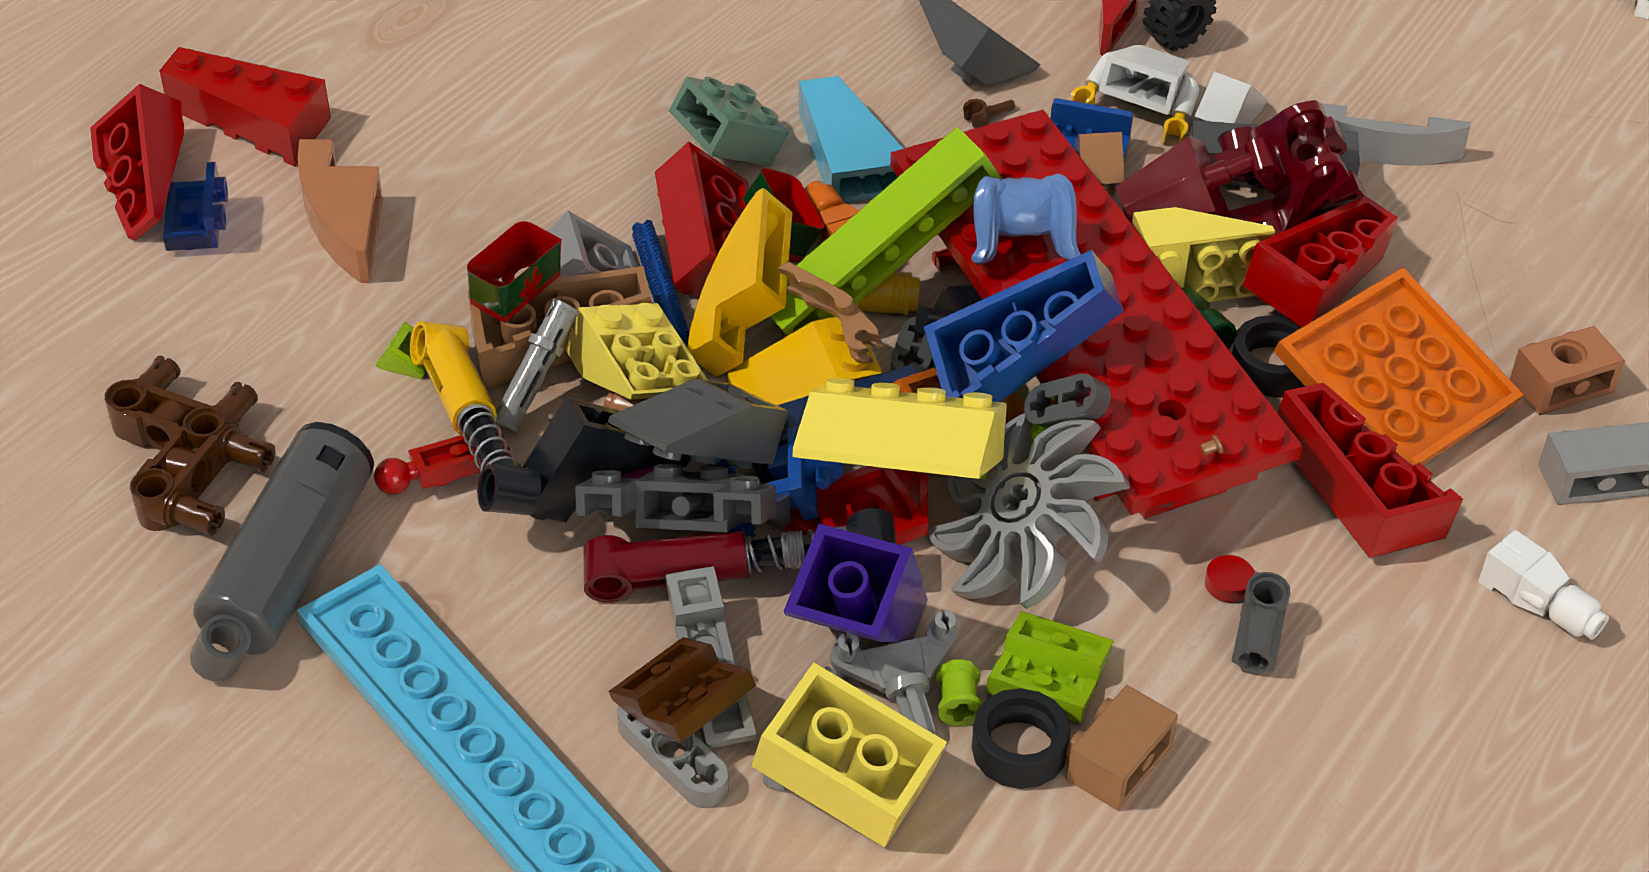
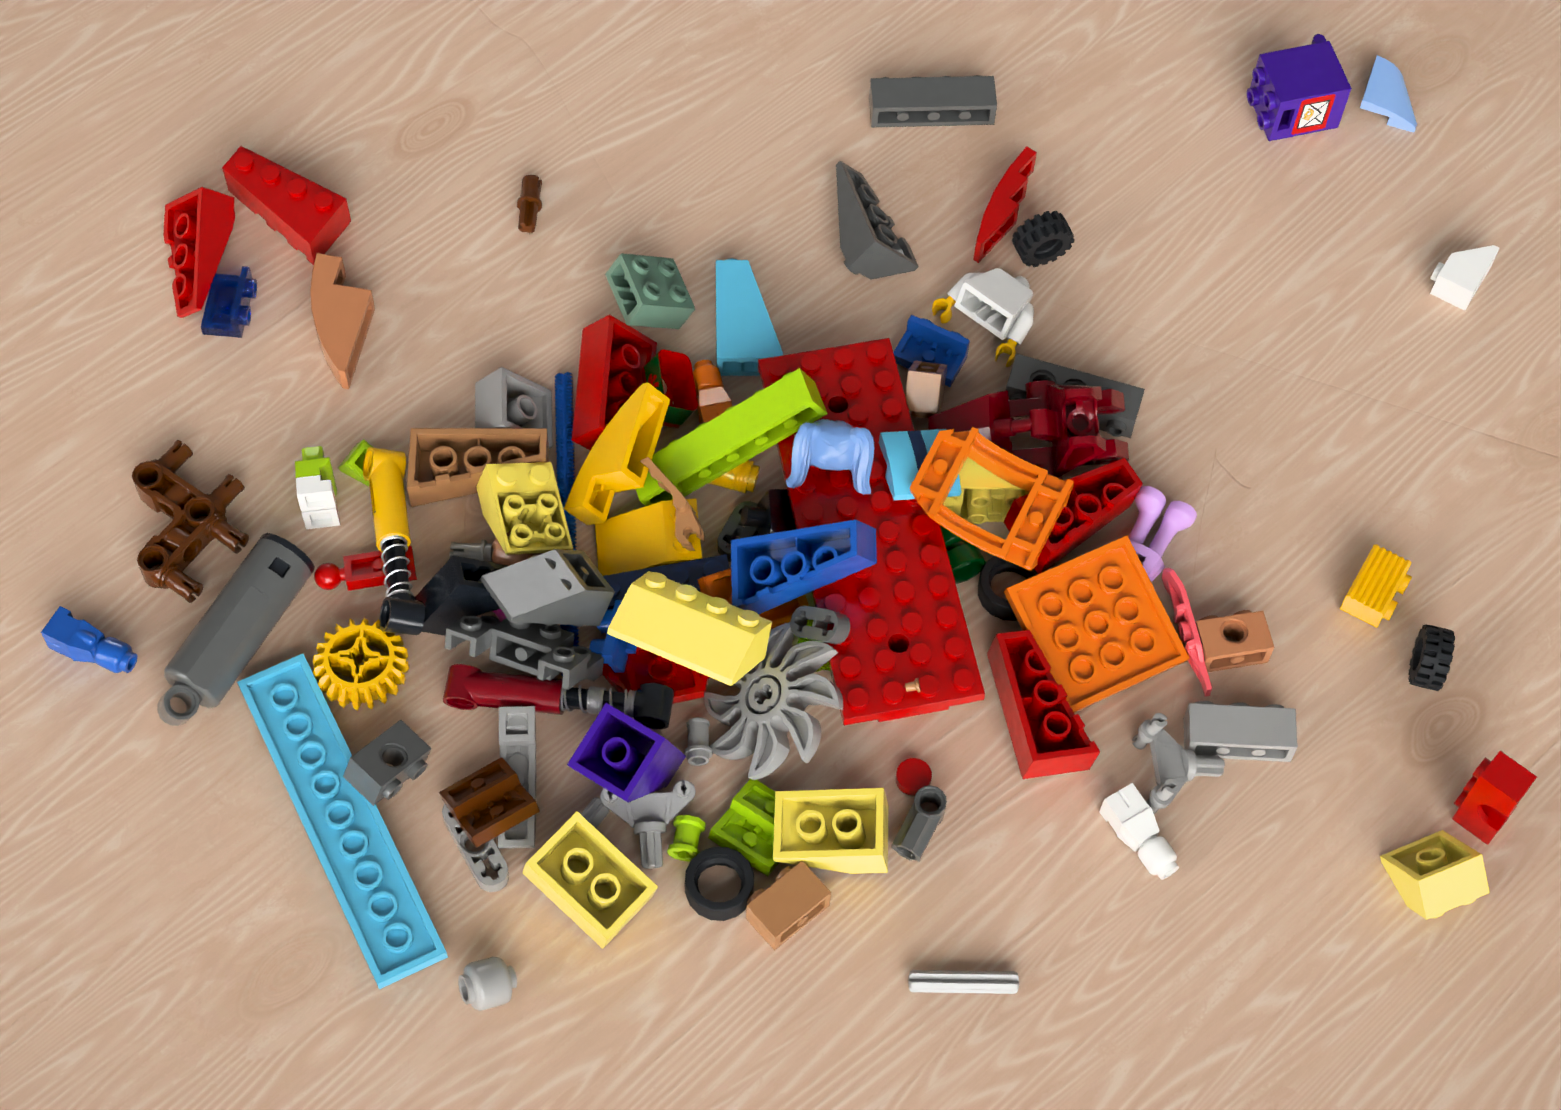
camera: 10 degrees right, 15 degrees up
(74, 600) = (86, 643): none -> blue piece
(358, 379) = (316, 489): none -> white hips
(491, 559) = (346, 650): none -> yellow gear
(515, 249) = (441, 409): red piece -> none
(529, 666) = (396, 746): none -> dark grey brick
(539, 357) = (455, 492): light grey pin -> none
(550, 66) = (529, 203): none -> reddish brown axle
(939, 587) = (698, 747): none -> light grey pin
(979, 111) = (855, 302): reddish brown hand -> none
(1132, 218) = (904, 456): none -> medium azure slope
(1157, 642) = (832, 829): none -> light yellow slope
(1230, 101) = (1056, 337): white slope -> none
(1296, 229) = (1036, 518): none -> orange wedge
(1385, 800) = (963, 981): none -> axle
(1404, 143) = (1170, 396): light grey slope -> none
(1447, 254) = (1177, 517): none -> lavender piece
(1510, 361) = (1187, 626): none -> coral piece
(1553, 506) = (1172, 762): none -> light grey axle

